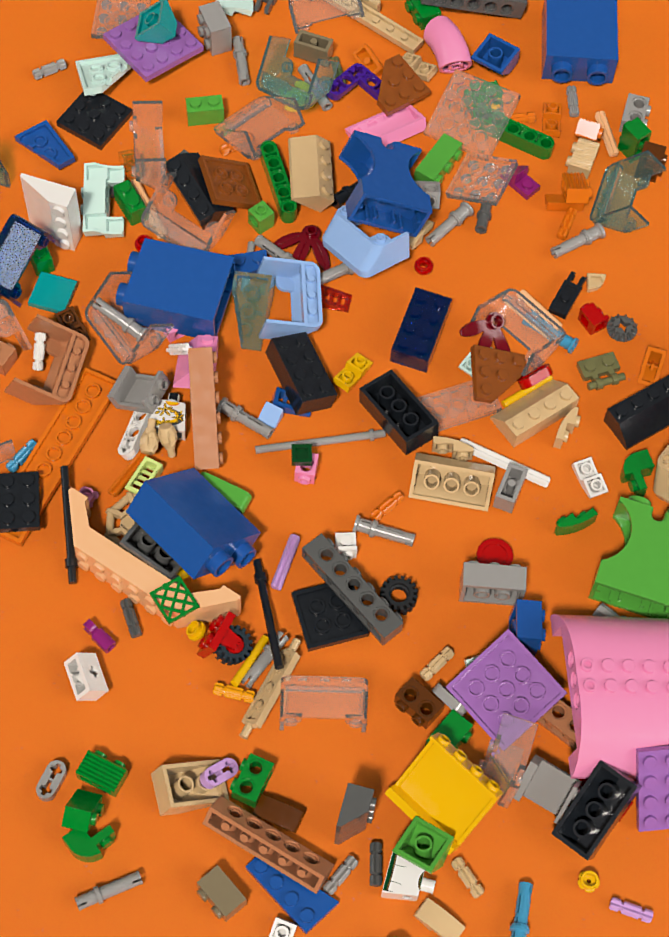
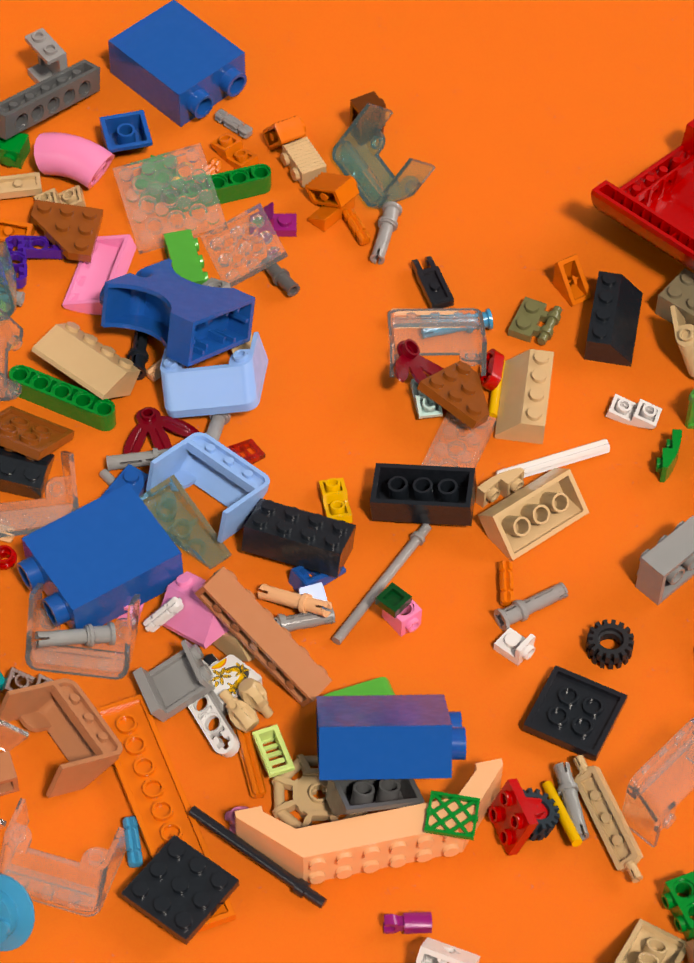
camera: 45 degrees left, 10 degrees down
(39, 351) = (35, 738): white axle -> none
(130, 617) = (414, 881): dark grey axle -> none
(196, 630) = (480, 831): yellow plate -> none
(217, 770) = (658, 927): lavender beam -> none
(233, 692) = (581, 853): light orange axle -> none
(258, 412) = (304, 603): none -> light nougat pin
(261, 217) = (87, 440): bright green brick -> none
(261, 580) = (484, 741): black bar -> none
(285, 562) = (483, 707): lavender axle -> none
(353, 599) = (587, 677): dark grey brick -> none
(420, 330) = (351, 413): clear blue brick -> none
(423, 261) = (282, 361): red plate -> none
(455, 219) = (259, 286): light grey pin -> none
(494, 551) = (638, 537): red piece -> none
(510, 488) = (589, 473): light grey brick -> none
(567, 426) = (565, 384): tan slope -> none
(592, 318) = (476, 284): red brick -> none
(594, 281) = (439, 254): tan tile -> none
(608, 137) = (313, 134): light nougat axle -> none
(618, 333) = (510, 279): dark grey gear -> none
(633, 137) = (330, 110): green brick -> none
(634, 469) = (662, 376): green brick -> none
(635, 107) = (301, 93): light grey brick -> none

